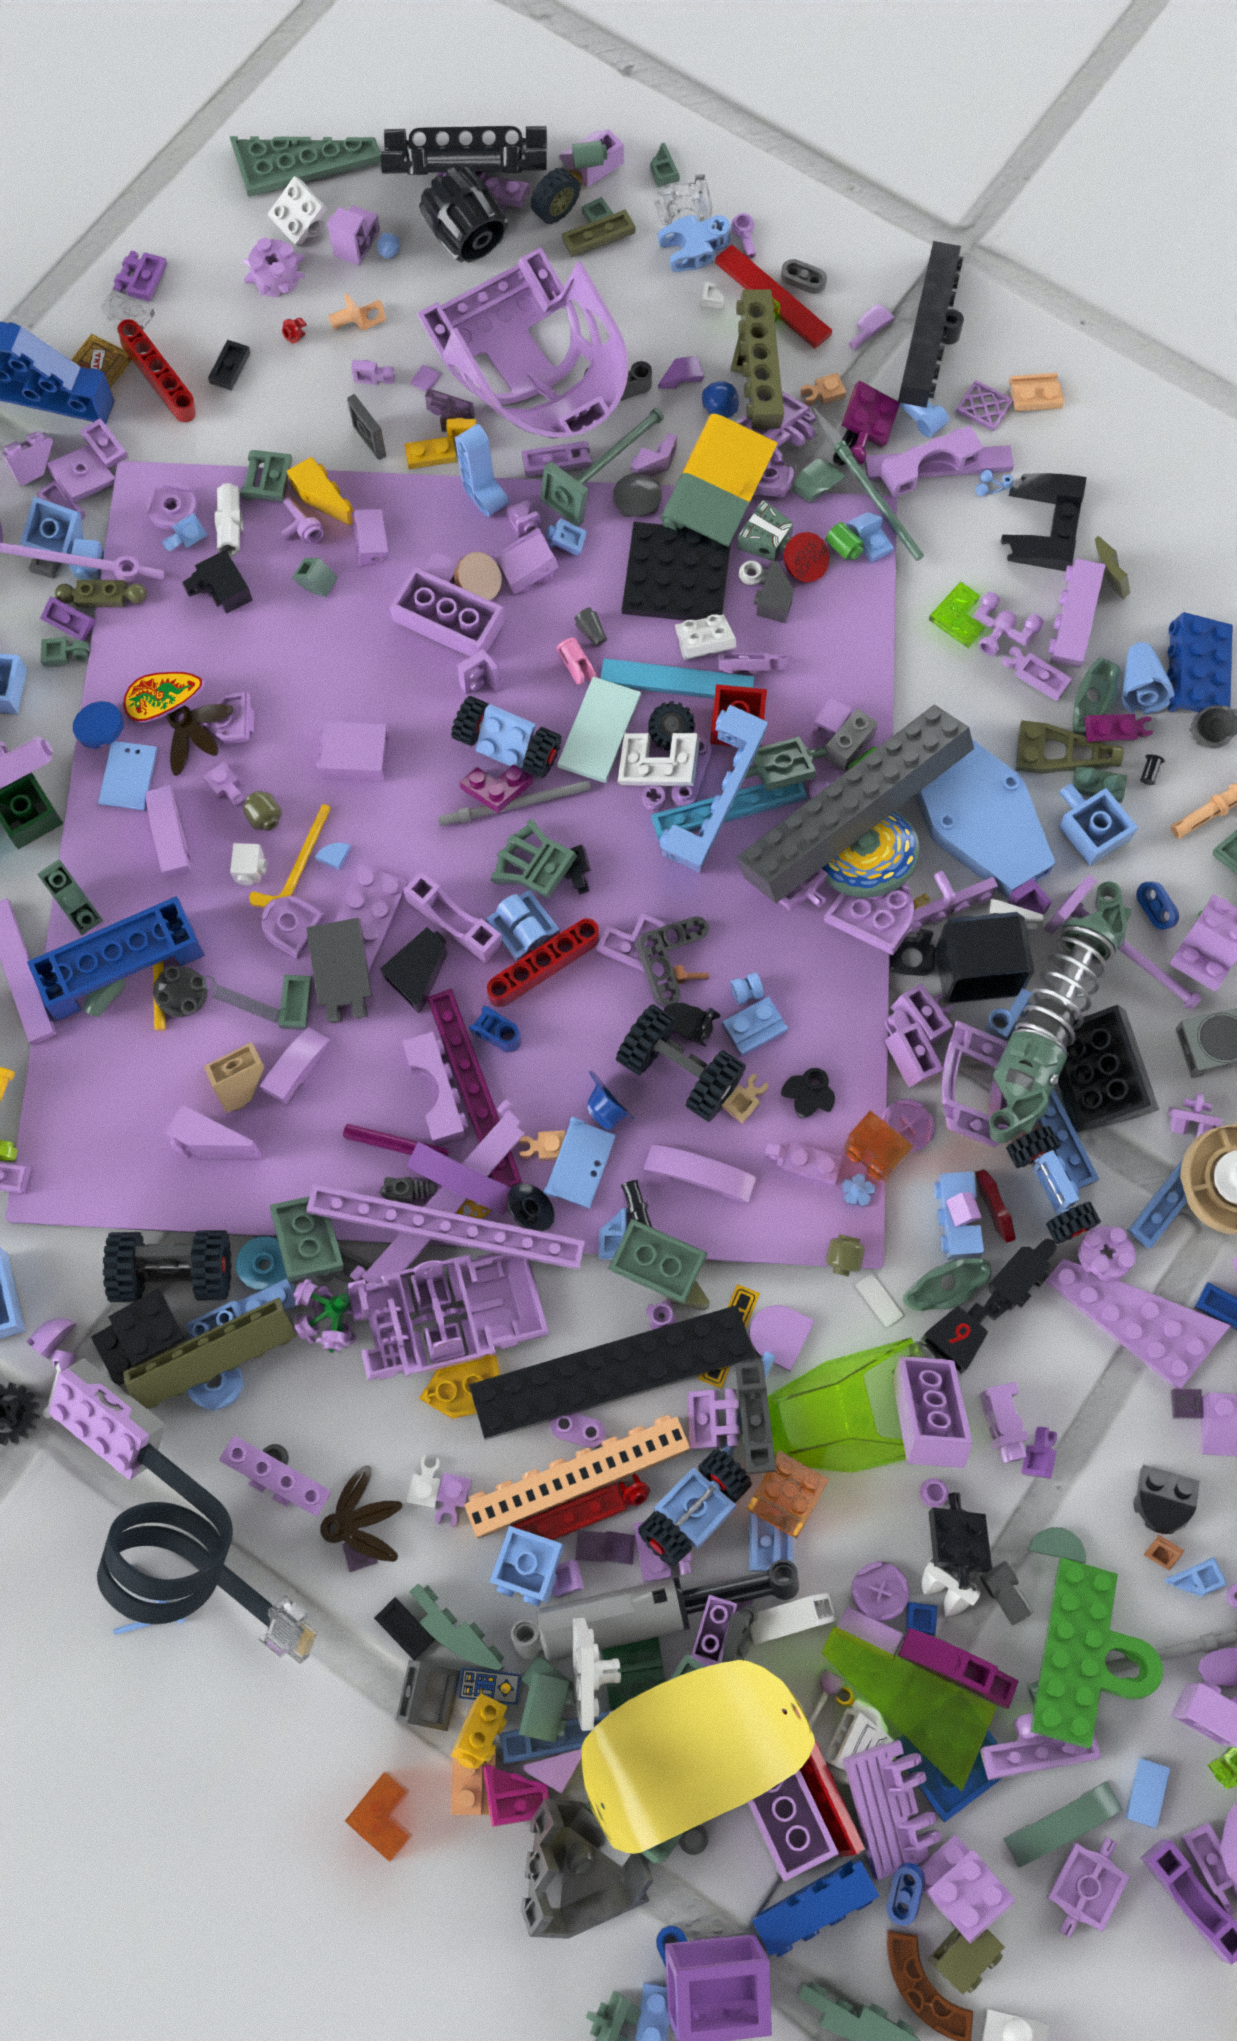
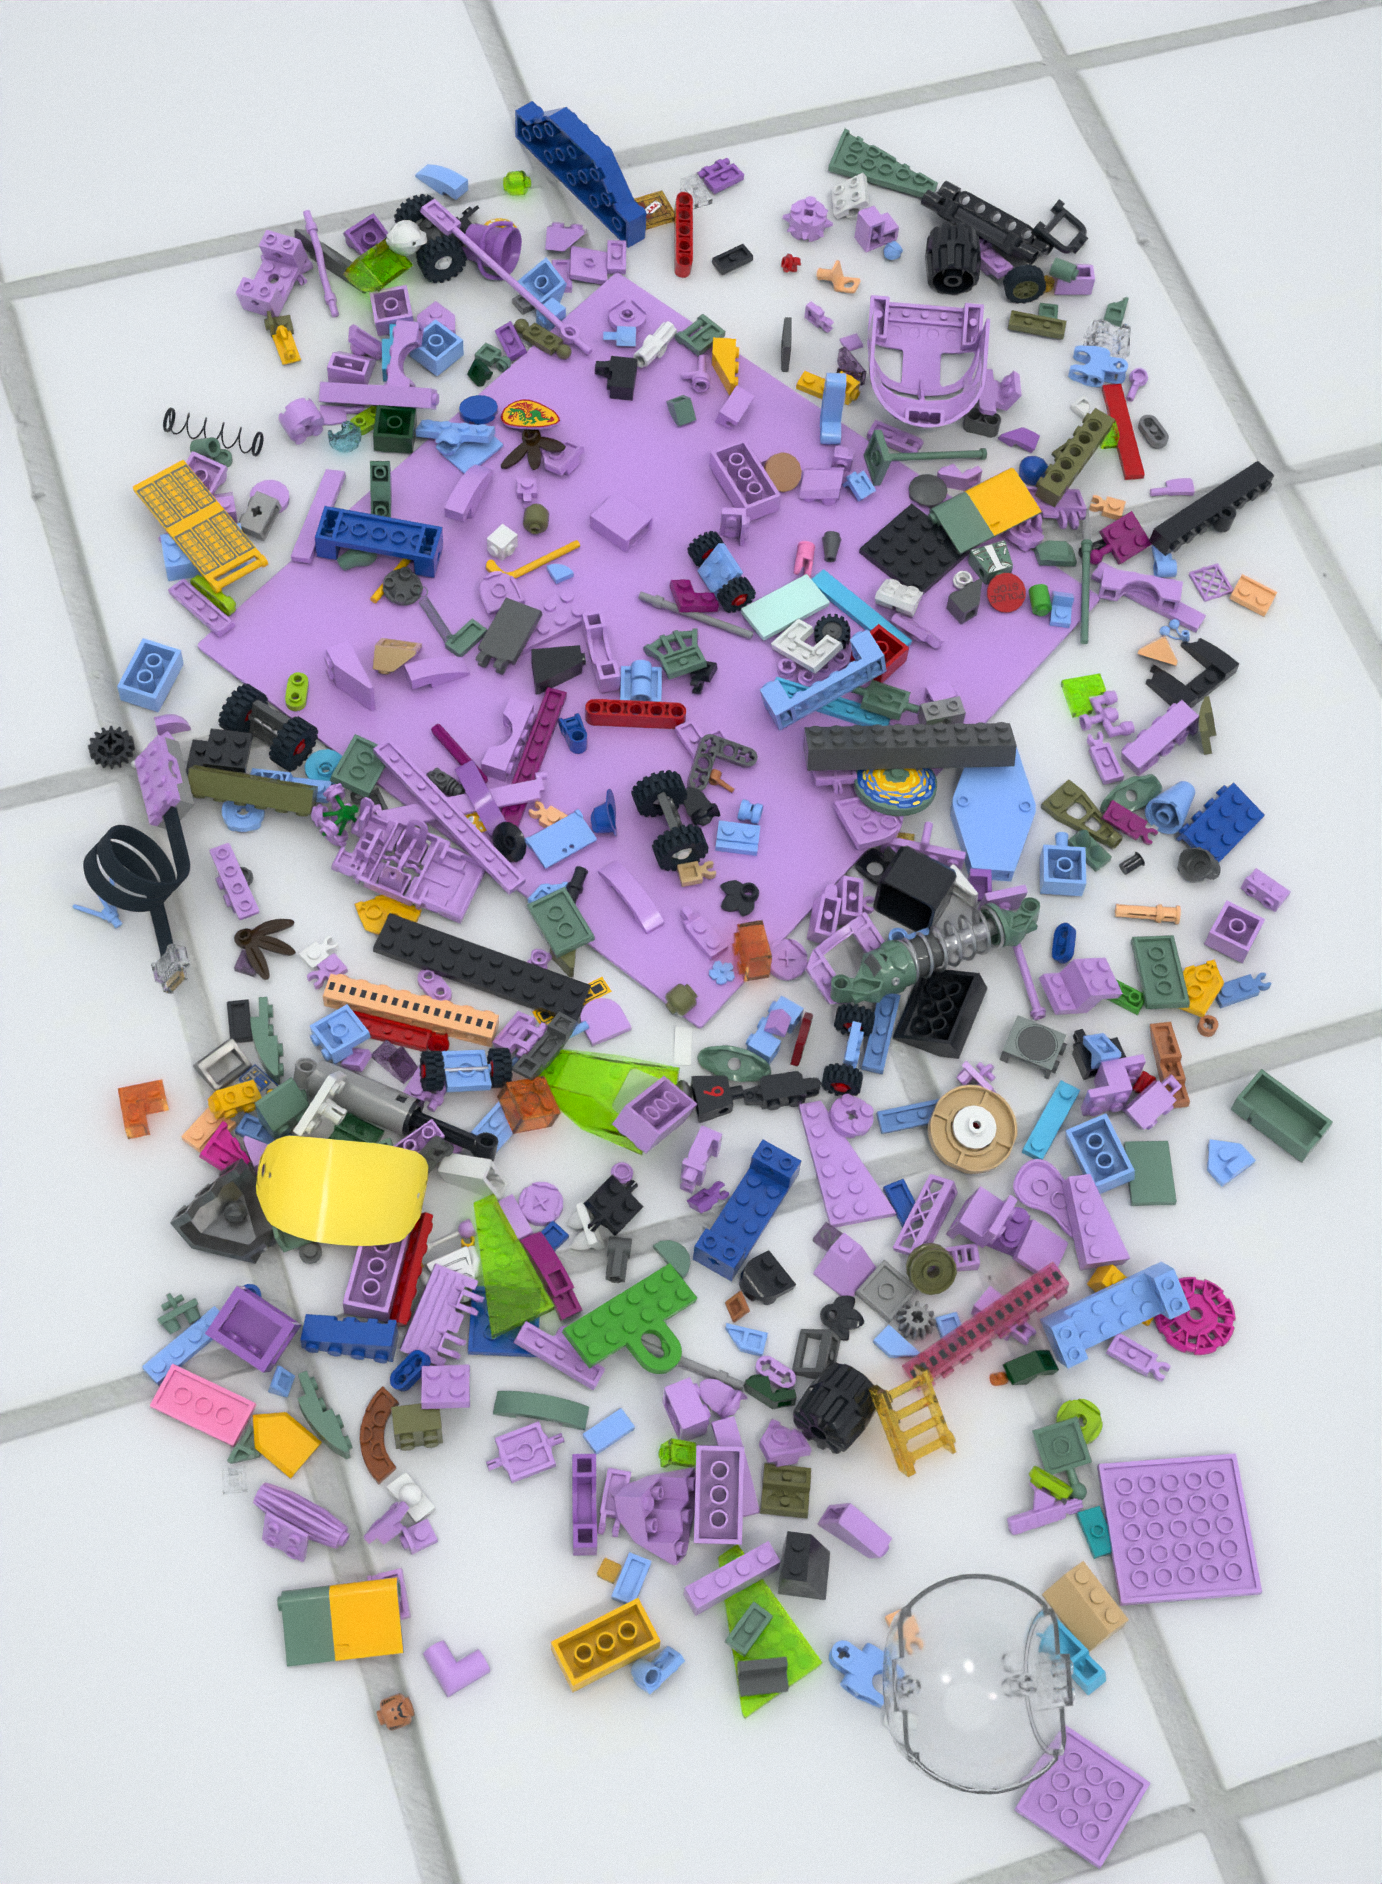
camera: 30 degrees right, 10 degrees down
(62, 679) = (479, 372): none -> dark green tile
(95, 773) = (451, 435): none -> light blue plate
(161, 1195) = (298, 690): none -> lime plate
(528, 121) = (1061, 212): none -> black bar
(633, 327) = (999, 394): none -> lavender plate
(782, 2013) = (281, 1382): none -> light blue slope
(997, 515) = (1159, 650): none -> light nougat slope
(1091, 1440) = (747, 1211): none -> blue plate

